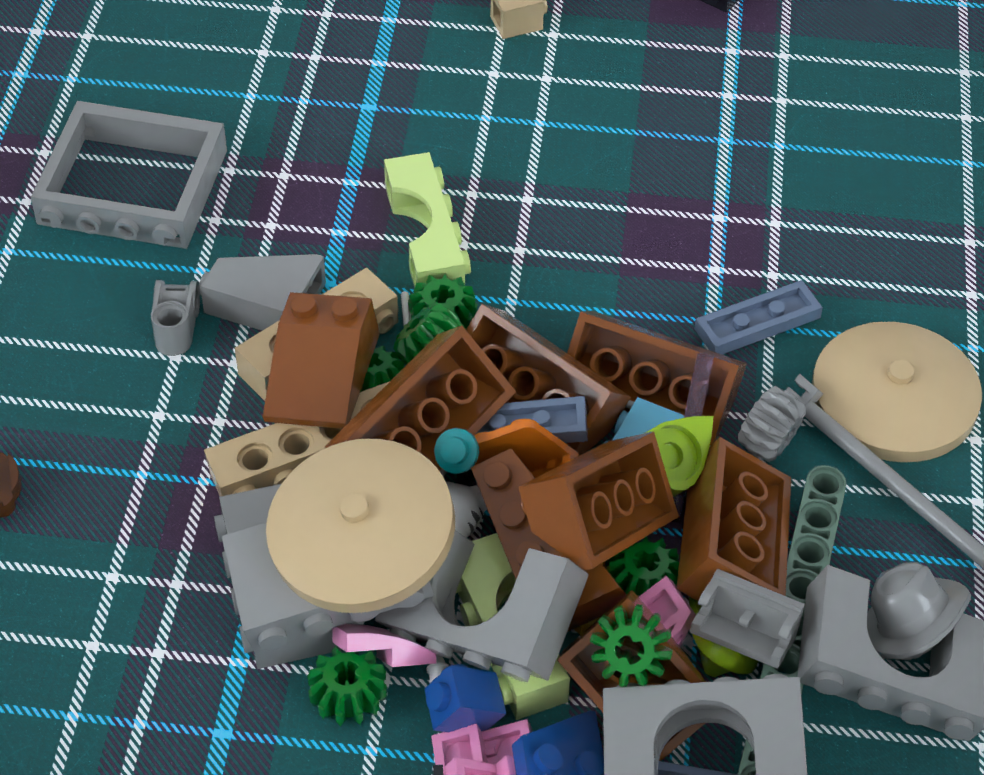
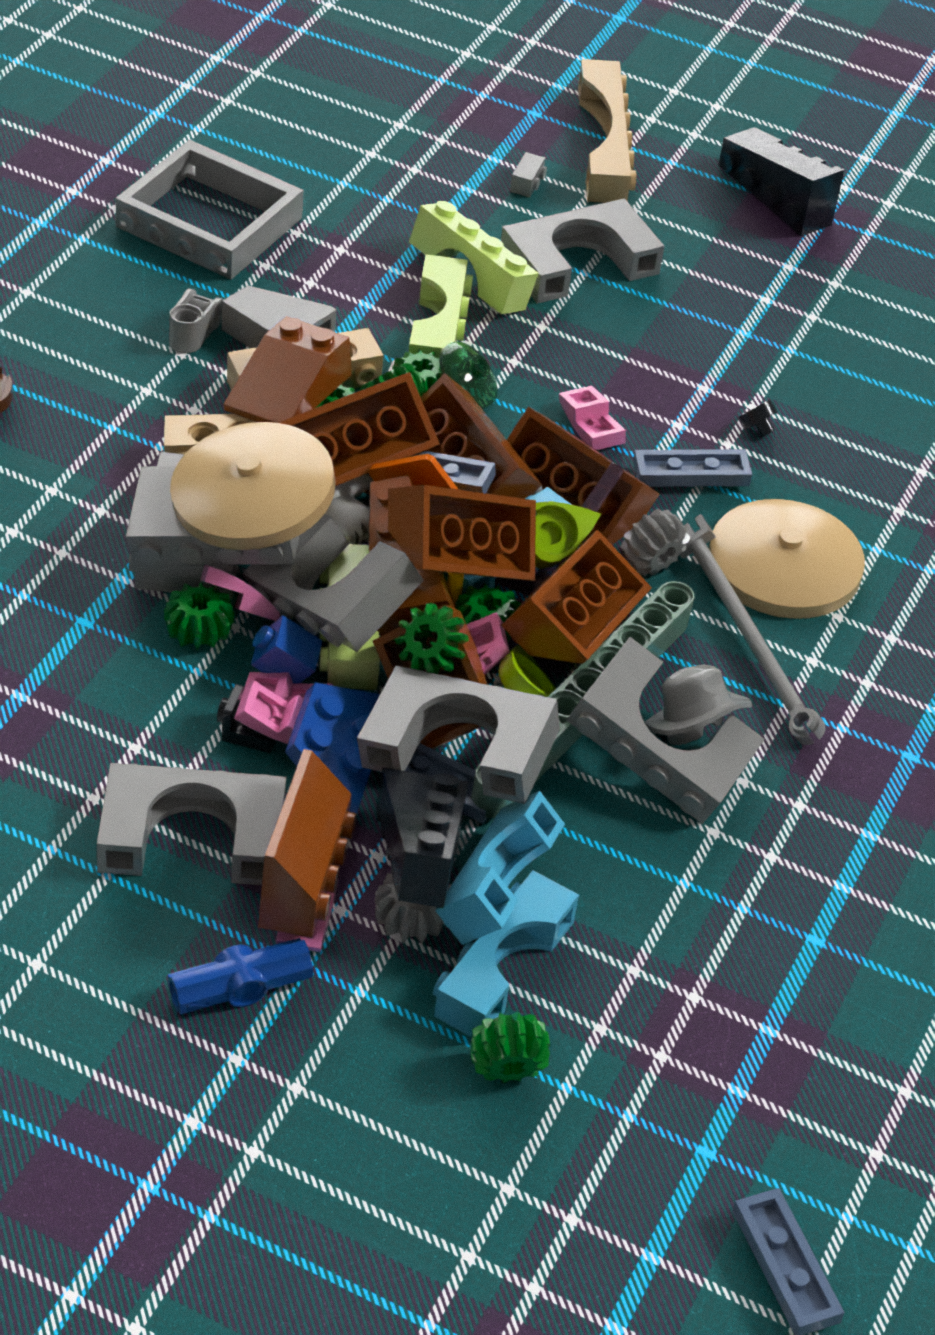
camera: 15 degrees right, 5 degrees down
(434, 28) = (528, 174): none -> light grey piece
(456, 450) = (364, 466): teal plate -> none
(470, 158) = (501, 276): none -> yellowish green arch
(489, 283) = (470, 371): none -> clear green dish
(542, 66) = (606, 227): none -> light grey arch
(627, 292) = (591, 419): none -> bright pink slope
(747, 618) = (545, 658): light grey hinge -> none
(794, 236) = (759, 417): none -> black tile

